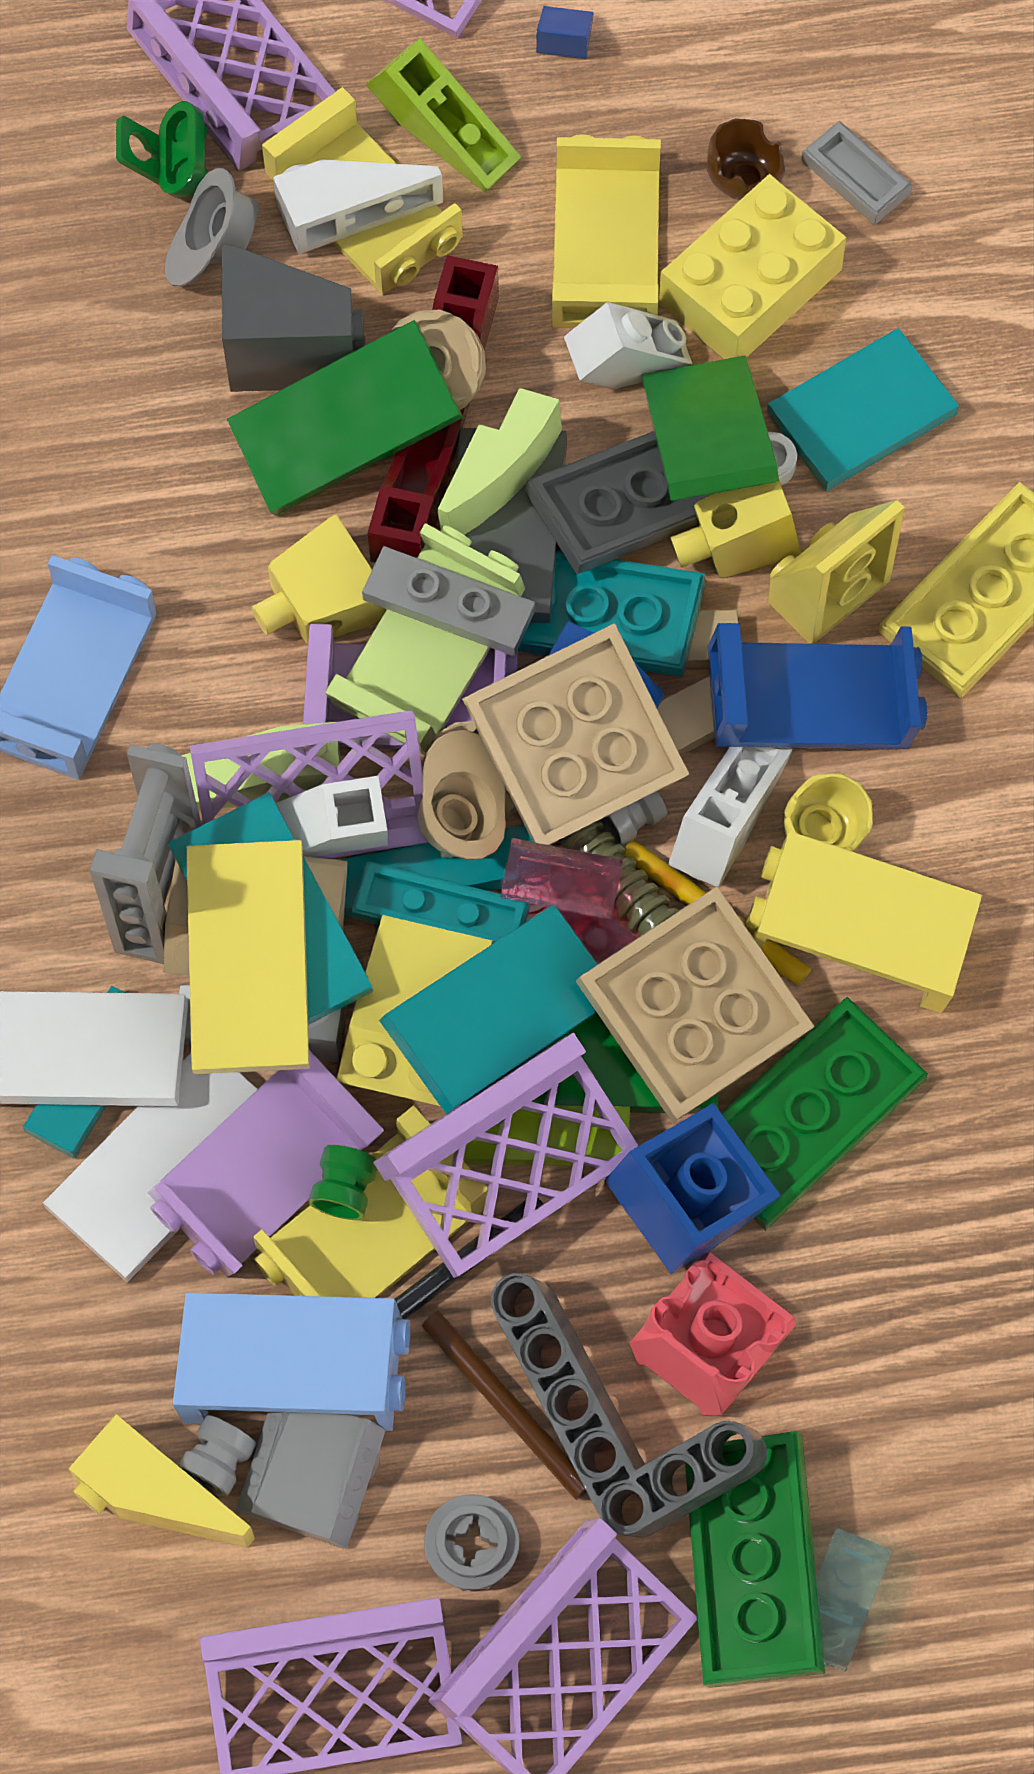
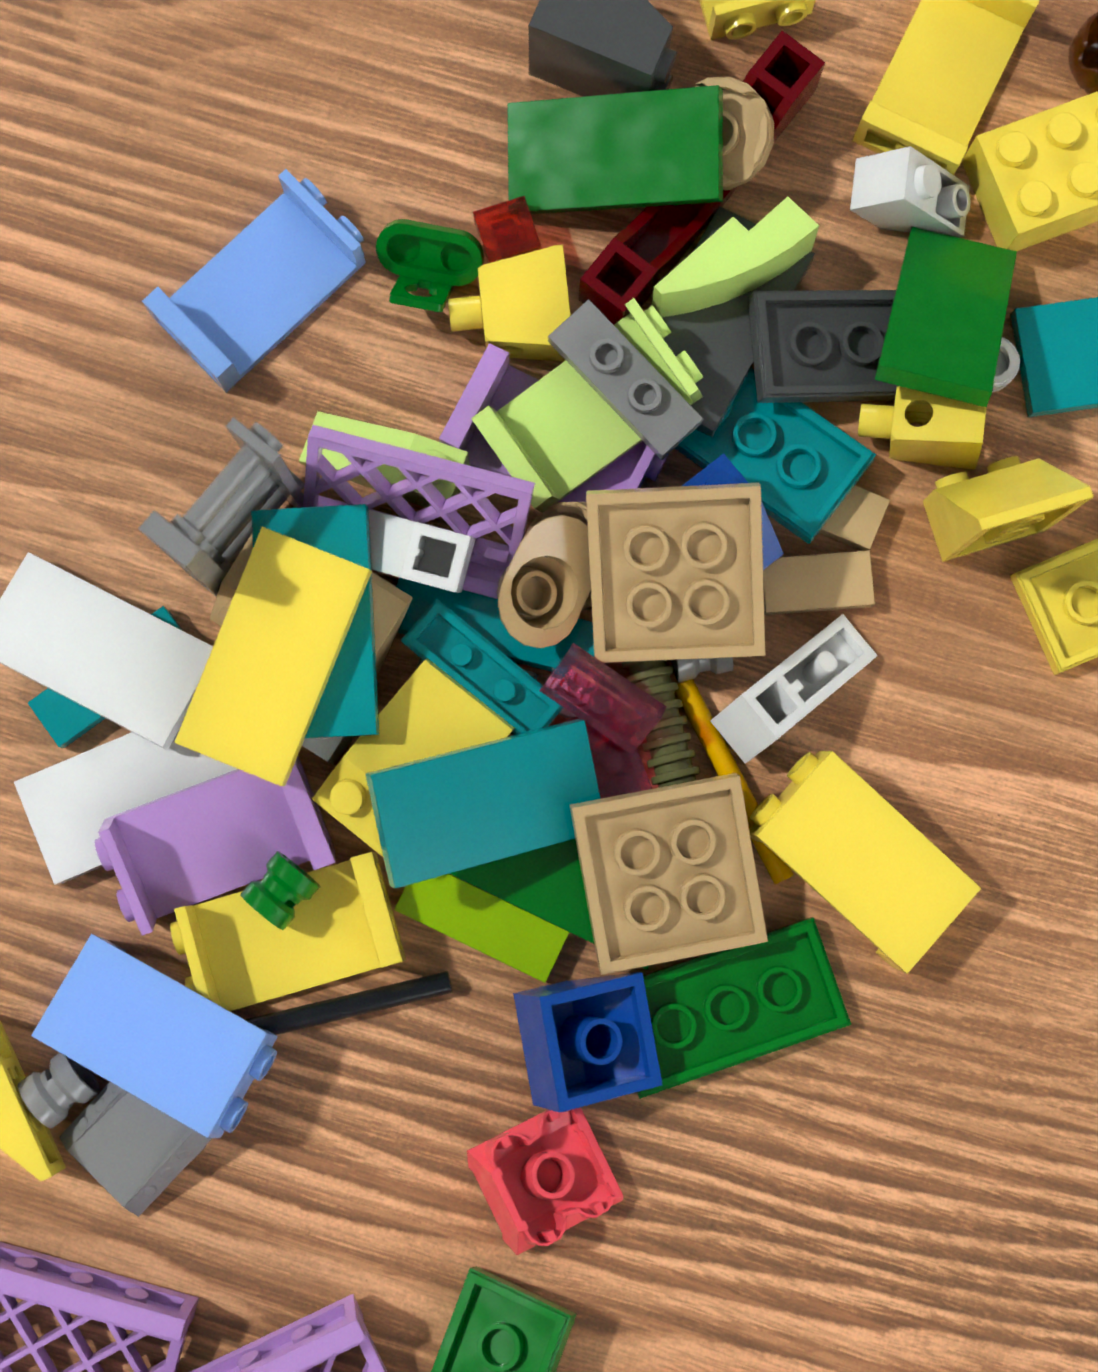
camera: 20 degrees right, 15 degrees up
(217, 581) = (427, 259): none -> green bracket
(277, 524) = (506, 230): none -> clear red tile
(454, 1521) = (219, 1267): light grey gear -> none
(481, 1113) = (378, 902): lavender fence -> none
(504, 1402) = (335, 1154): reddish brown bar -> none
(603, 1424) = (408, 1226): dark grey beam -> none
(814, 693) = (924, 615): blue panel -> none
(831, 811) = (878, 742): light yellow hair -> none

